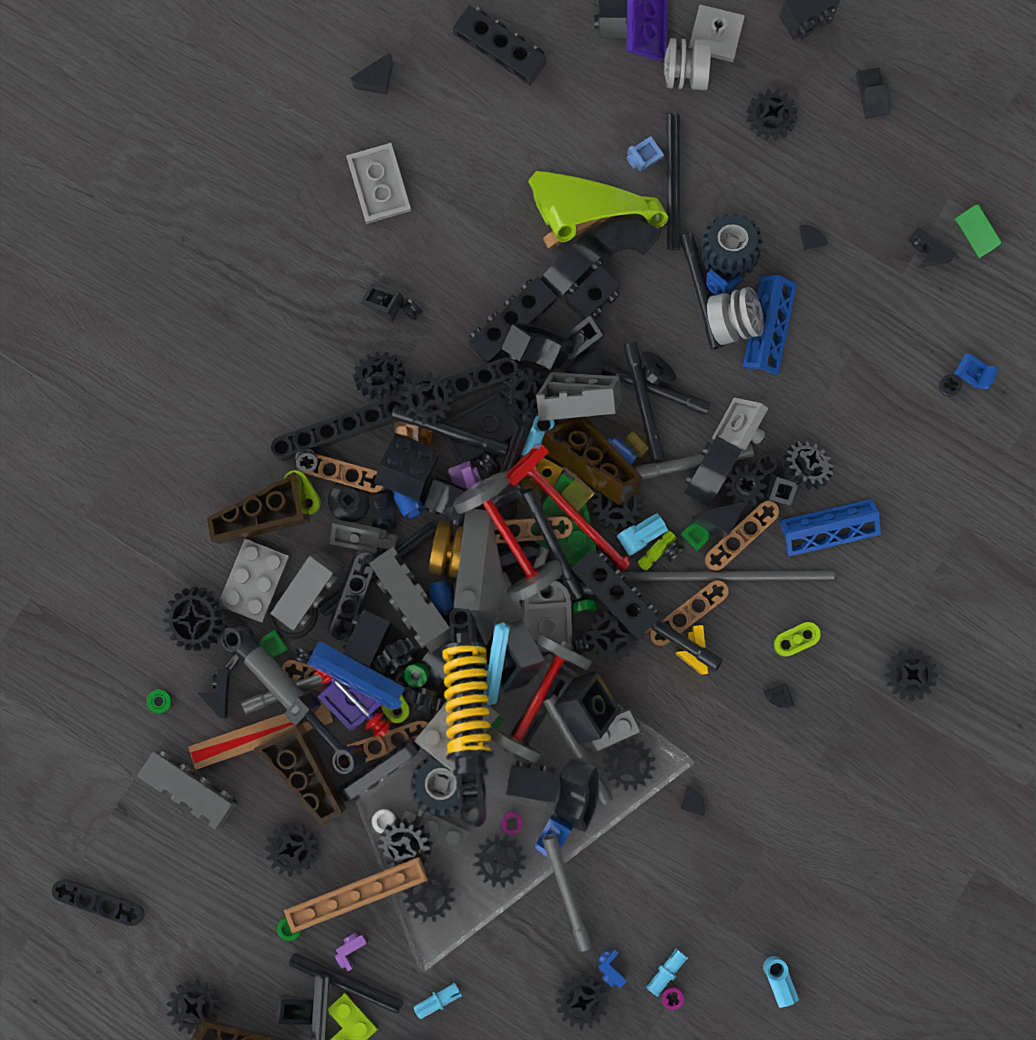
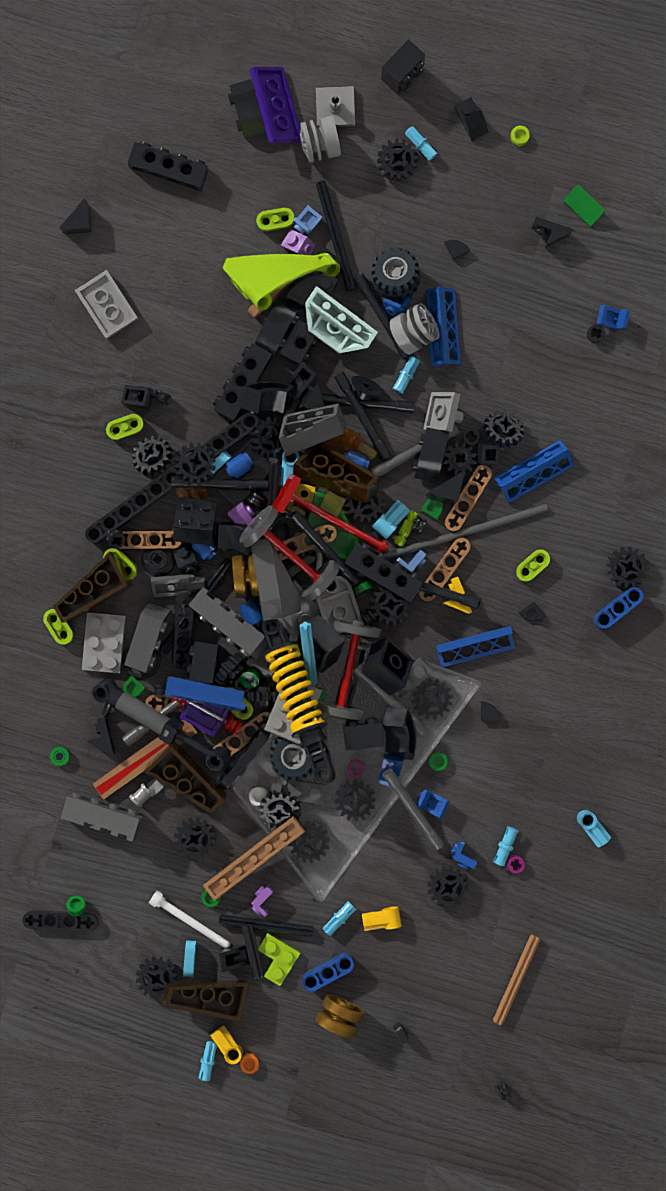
camera: 15 degrees left, 5 degrees up
(122, 889) = (76, 905): none -> green tile
(195, 609) = (70, 692): black gear -> none
(204, 546) = (57, 628): none -> lime plate
(225, 913) = (158, 900): none -> white piece
(240, 996) = (189, 960): none -> medium azure beam
(248, 775) = (145, 792): none -> light grey connector
(357, 332) = (124, 425): none -> lime plate
(458, 405) = (220, 461): none -> medium azure beam
(479, 416) = (239, 465): none -> blue brick
(495, 1018) = (387, 918): none -> yellow piece
(592, 892) = (432, 803): none -> blue bracket
(607, 141) = (274, 217): none -> lime plate
(614, 843) = (438, 761): none -> green tile
(616, 424) = (348, 440): none -> clear orange bracket
(626, 177) = (298, 243): none -> medium lavender bracket
(644, 283) = (336, 324): none -> light aqua wedge
(659, 593) = (417, 562): none -> medium blue bracket
(699, 707) = (472, 640): none -> blue fence
(710, 368) = (406, 374): none -> medium azure axle
(805, 104) = (420, 143): none -> medium azure axle
(897, 720) = (626, 603): none -> blue beam
(924, 128) = (520, 135): none -> lime tile

